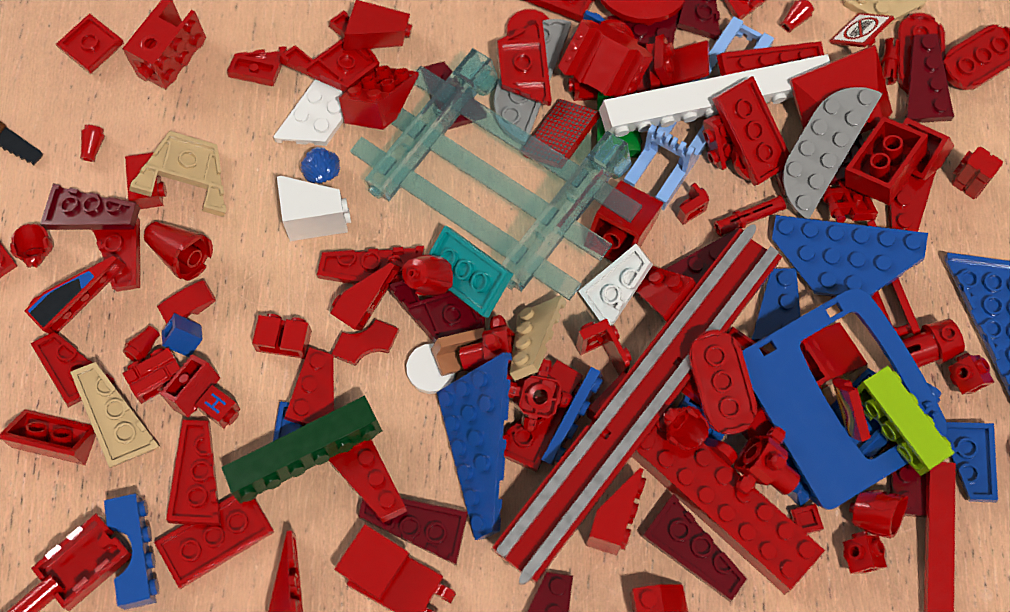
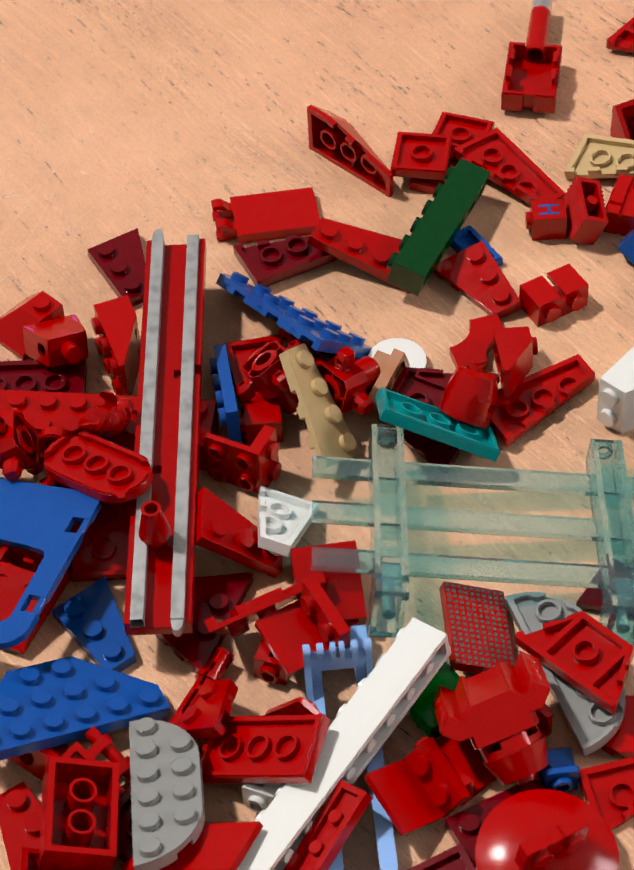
camera: 145 degrees right, 20 degrees down
(136, 584) = (528, 118): blue arch -> none
(245, 539) = (421, 155): none -> red plate
(372, 561) = (303, 201): red tile -> none
(656, 557) = (61, 341): none -> red torso
(672, 186) = (303, 622): none -> red bracket
(691, 222) = (259, 607): none -> red wing
(723, 294) = (153, 527): none -> red cone
(761, 184) = (205, 715): none -> red wing

